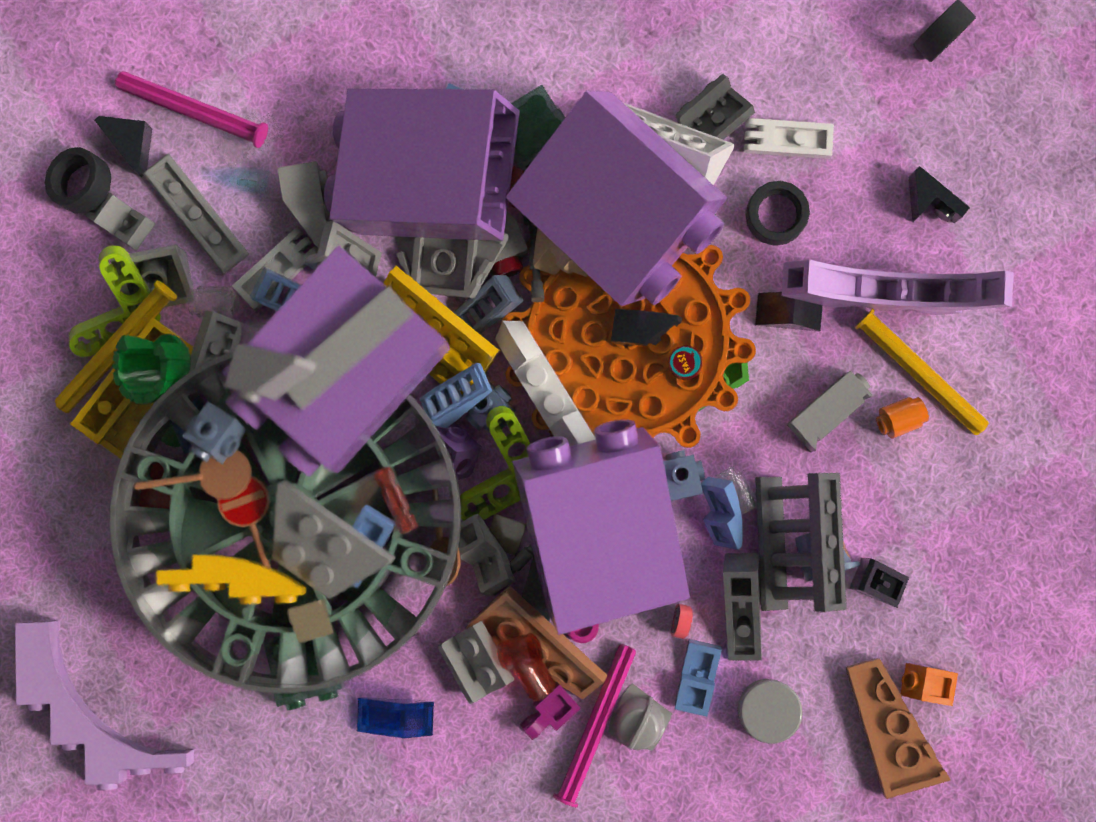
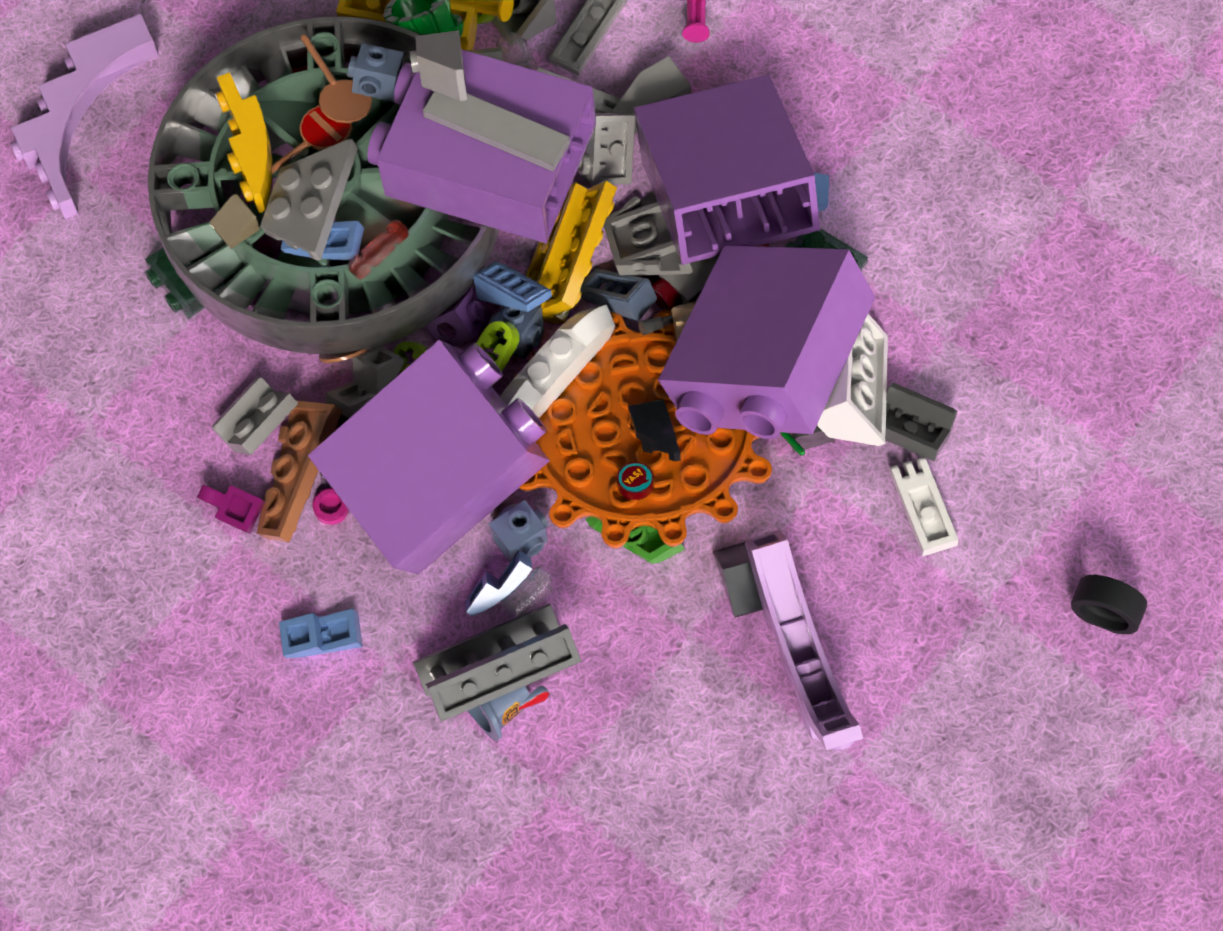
camera: 75 degrees right, 20 degrees down
(250, 180) = (650, 44): clear light blue slope -> none
(395, 717) = (174, 369): clear blue arch -> none
(524, 657) = (276, 451): clear red piece -> none
(596, 726) = (234, 555): dark pink axle -> none
(638, 720) = (254, 596): light grey piece -> none
(681, 621) = (371, 592): coral tile -> none
(742, 606) = (420, 633): flat silver slope -> none
(769, 711) = (312, 713): light grey head -> none
(792, 193) = (838, 550): black tyre -> none
(830, 409) = (652, 650): light grey window -> none
(879, 582) = (489, 768): black slope -> none
(895, 741) = (332, 847): nougat wing -> none
(902, 417) = (676, 726): orange brick -> none
(922, 373) = (733, 731): yellow axle -> none
(927, 190) = (925, 658): black slope -> none
(929, 684) = (401, 863): orange bracket -> none

